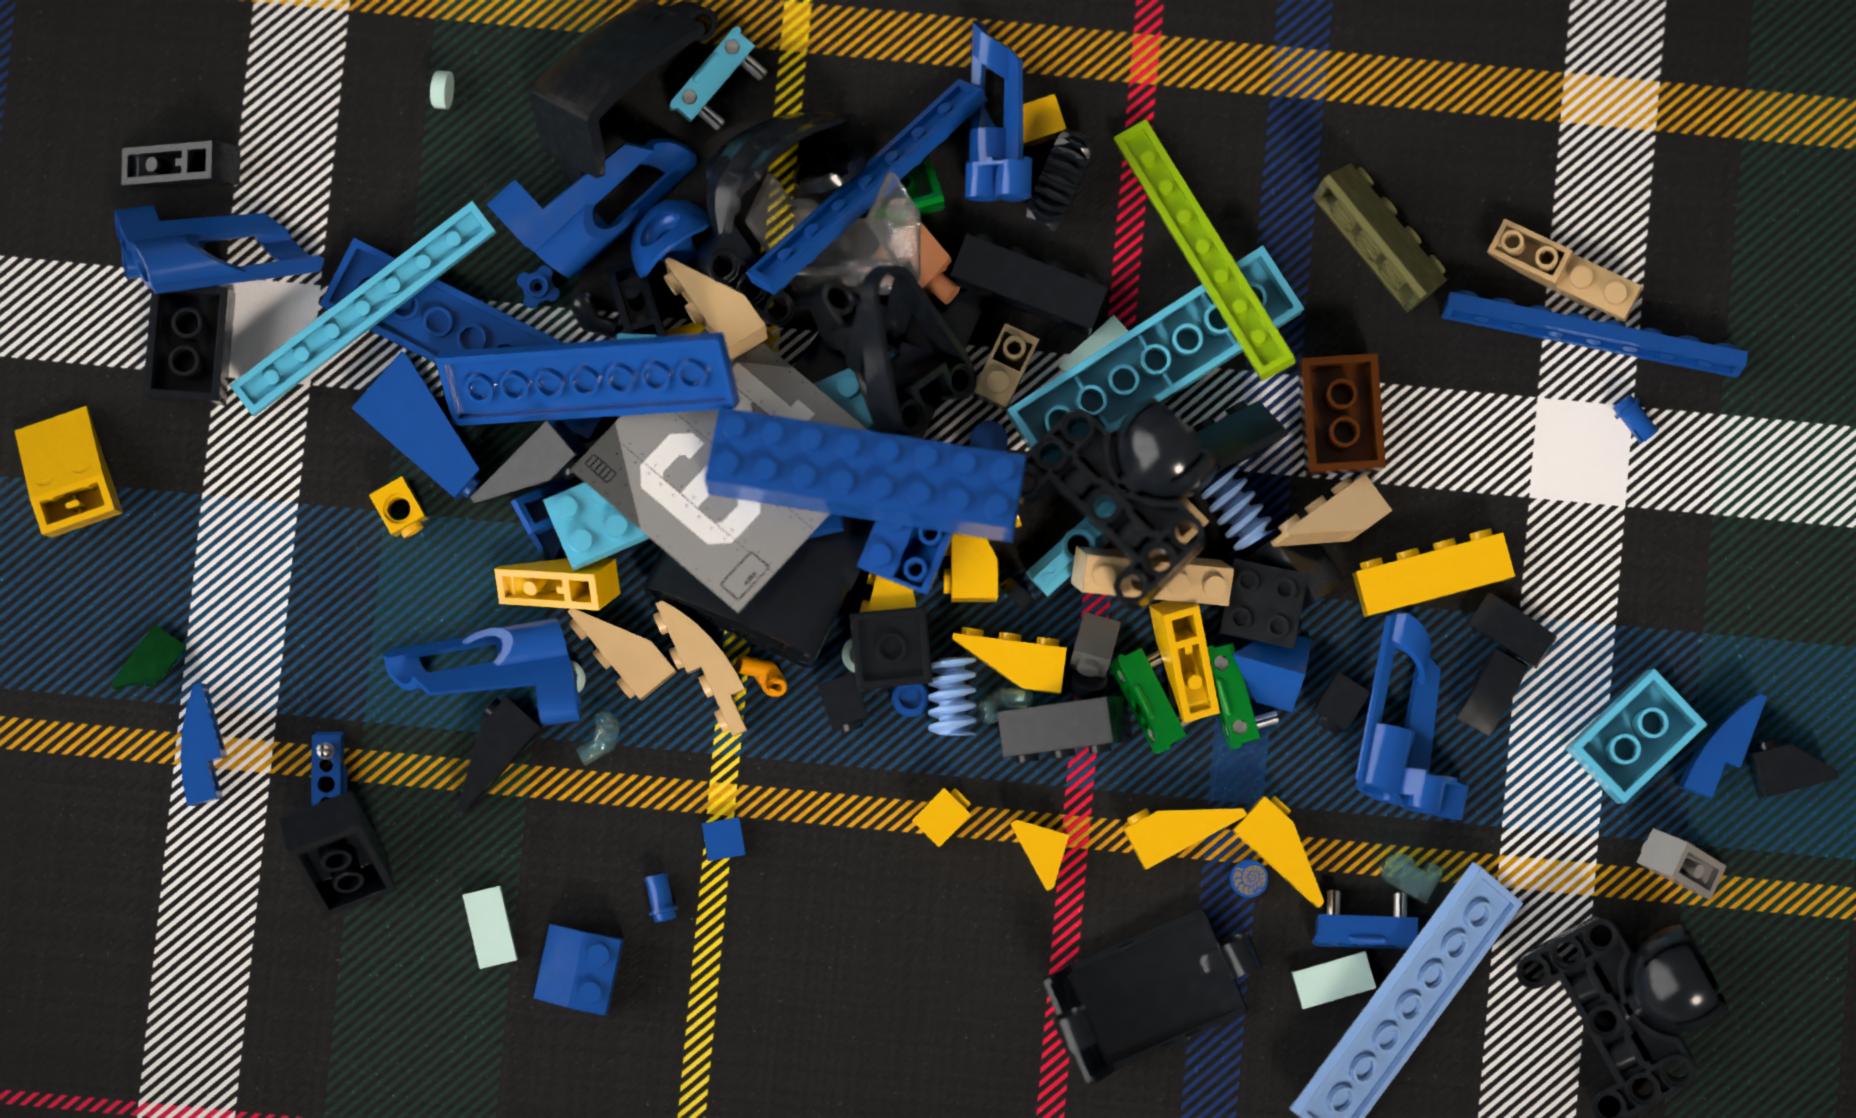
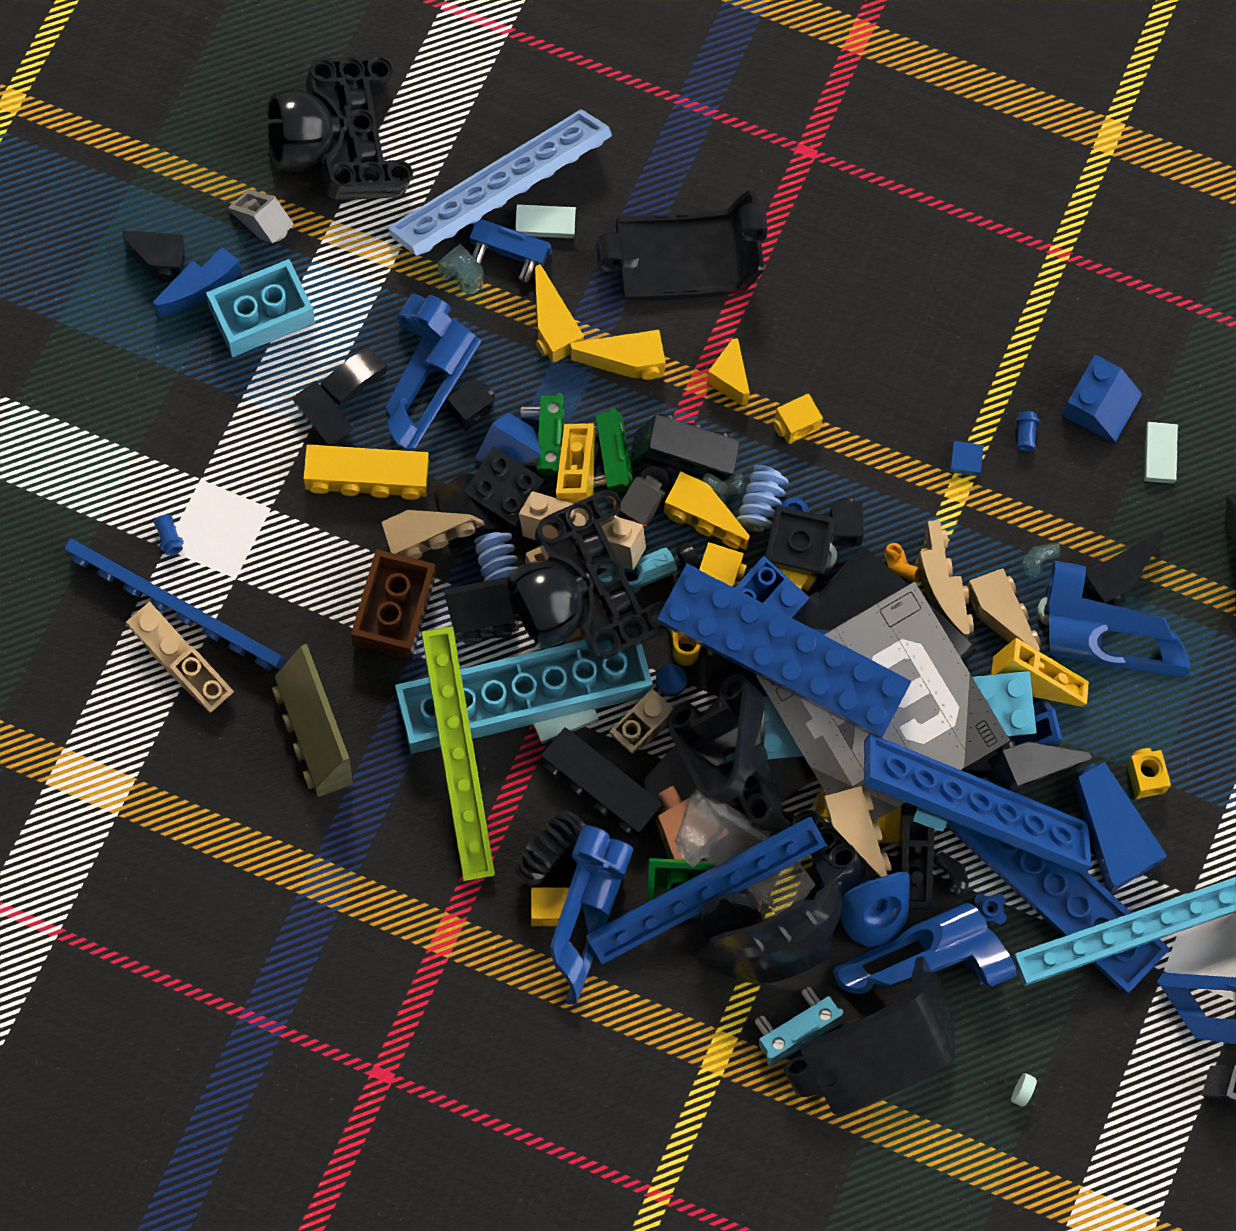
camera: 165 degrees left, 15 degrees down
(1248, 878) = (583, 308): tile -> none

